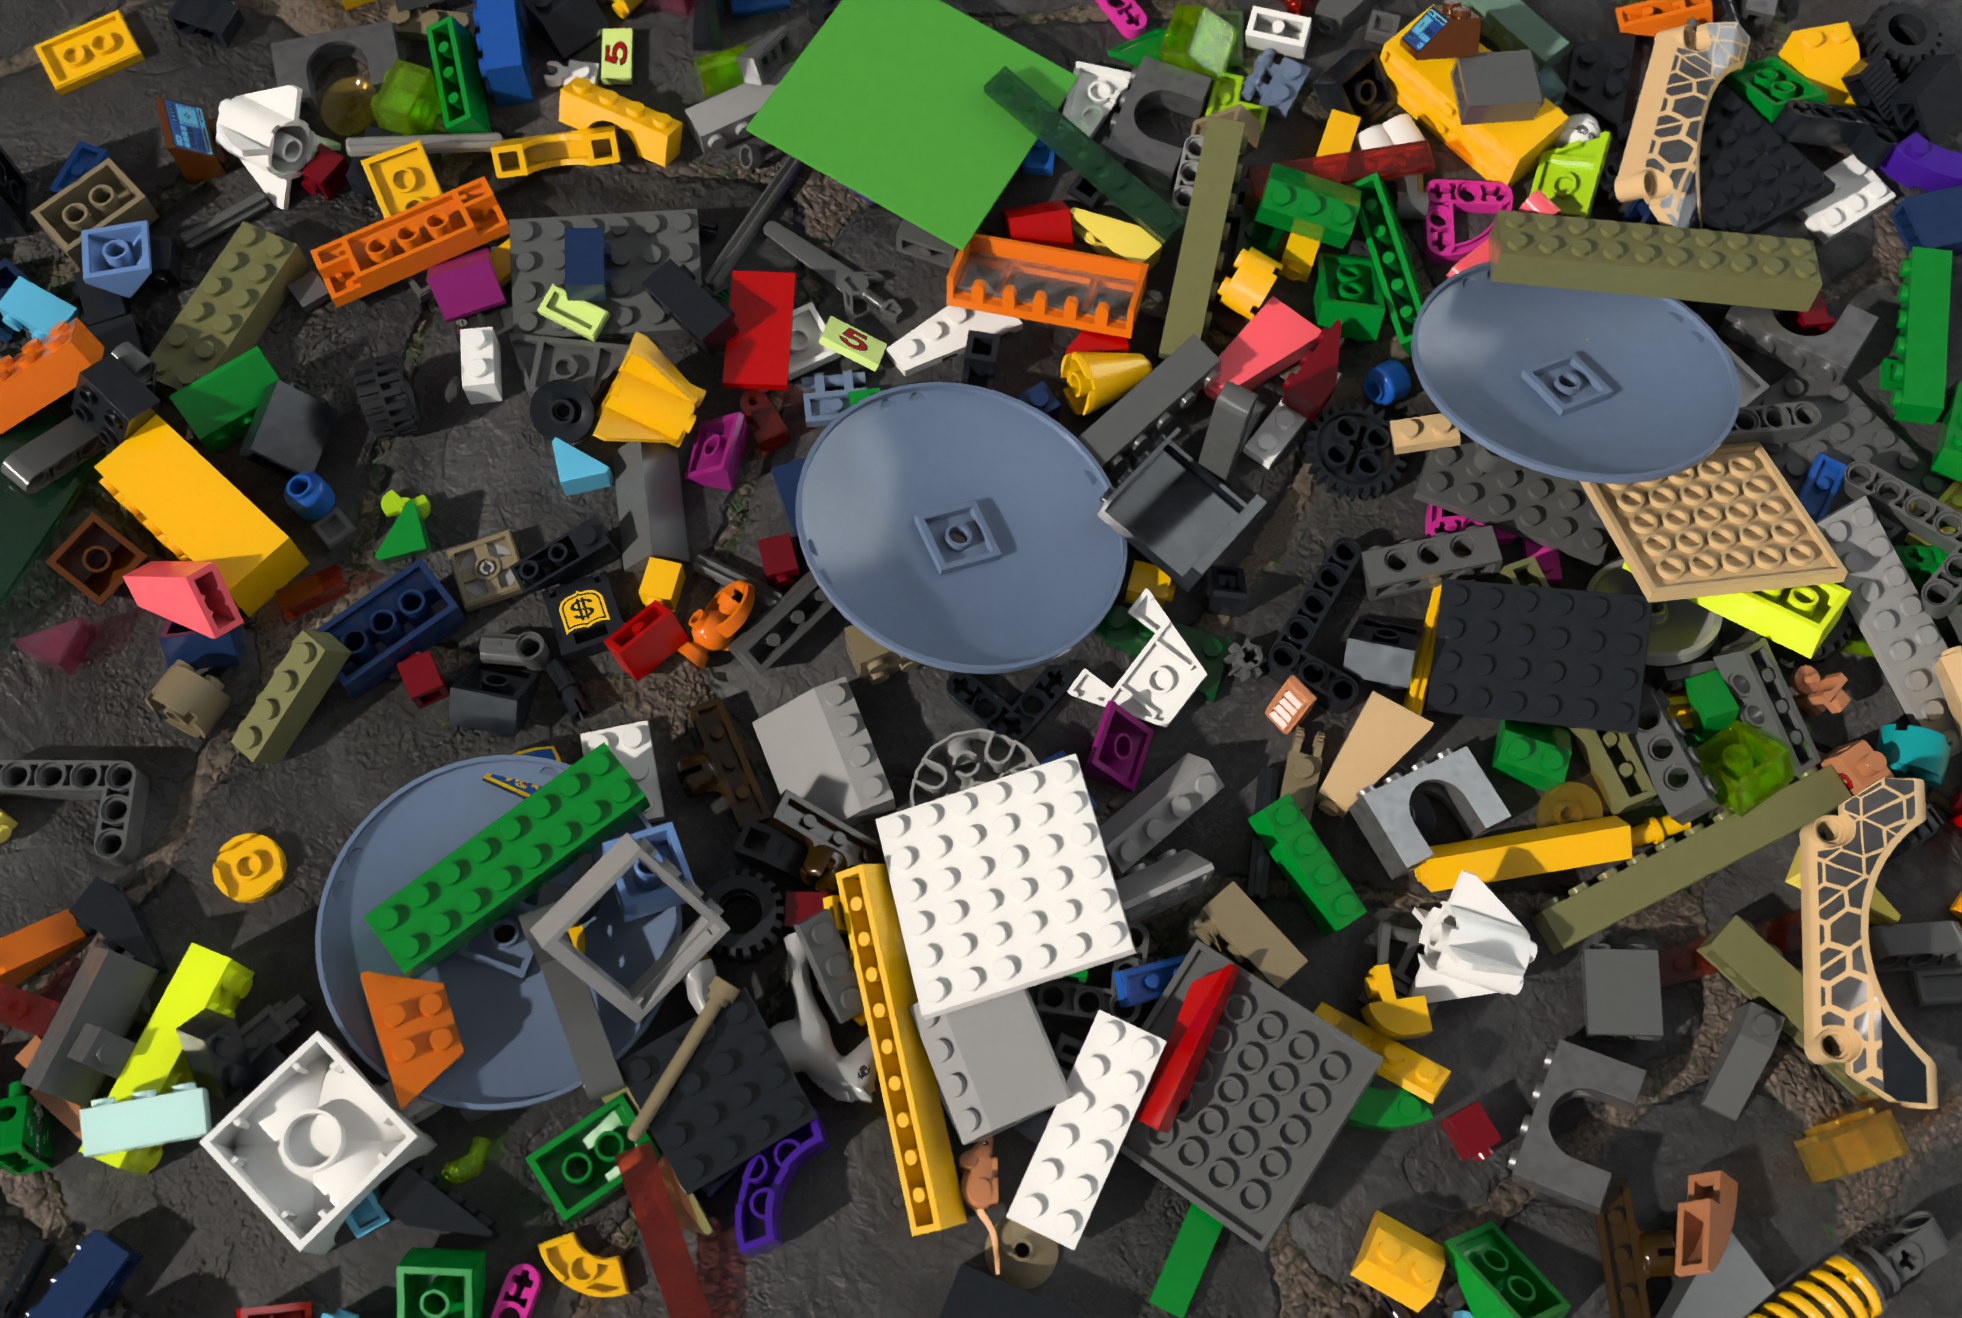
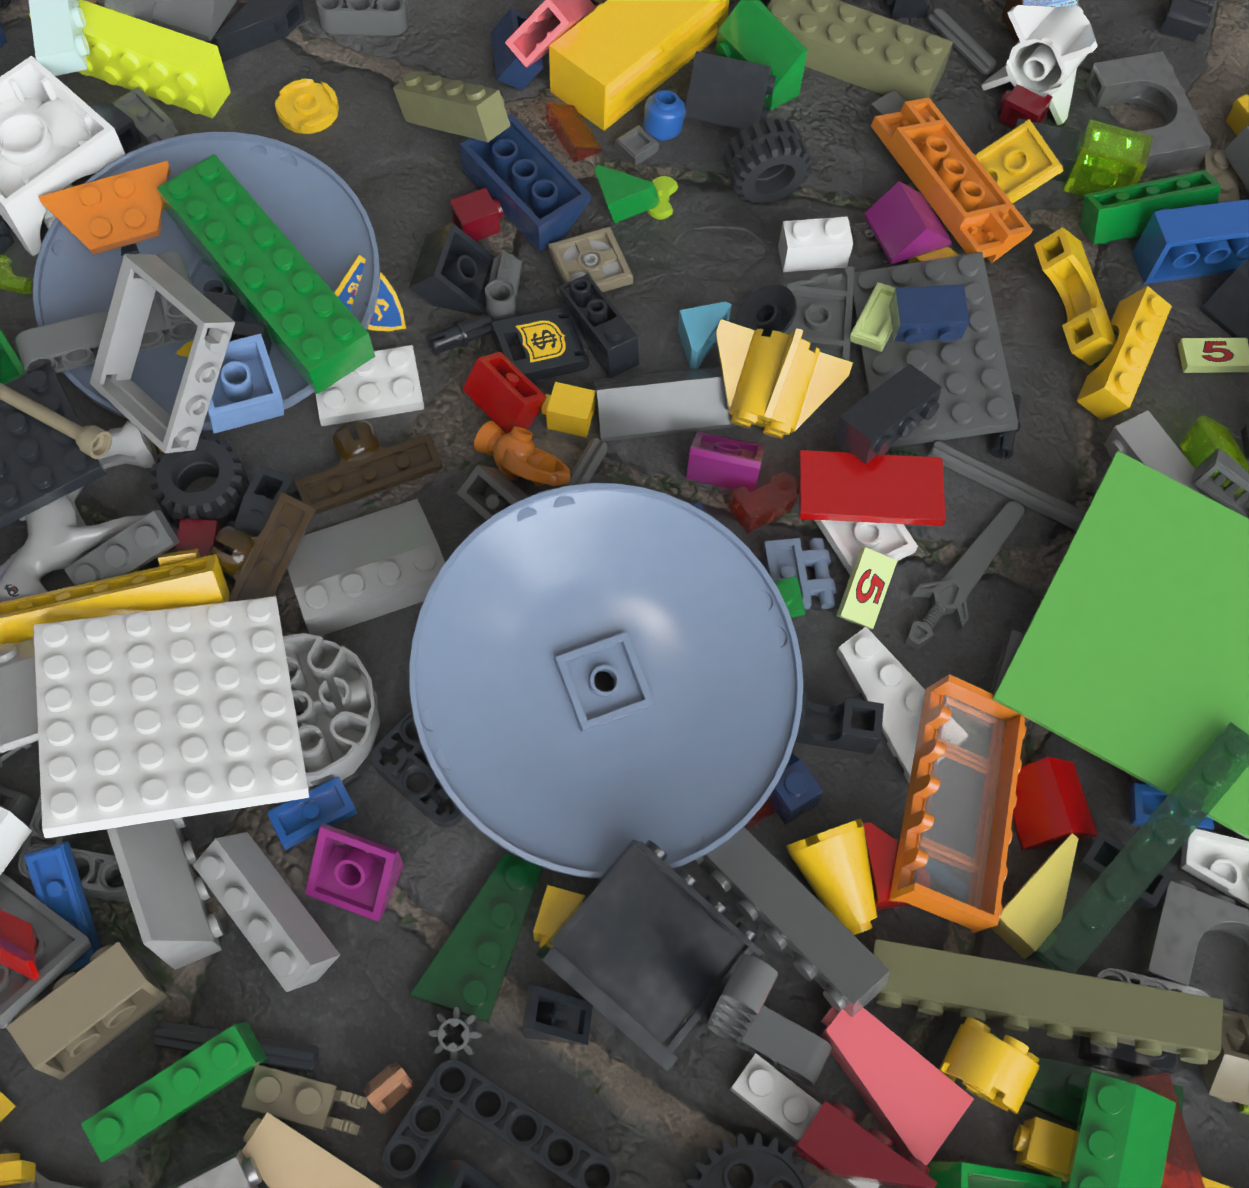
camera: 90 degrees right, 5 degrees down
(189, 700) = (459, 43): dark tan brick -> none
(215, 1053) = (116, 70): black brick -> none
(340, 102) = (1105, 112): clear yellow dish -> none
(432, 143) = (1065, 181): light grey axle -> none
(564, 75) = (1181, 320): white plate -> none
(1158, 678) = (435, 922): white wing -> none

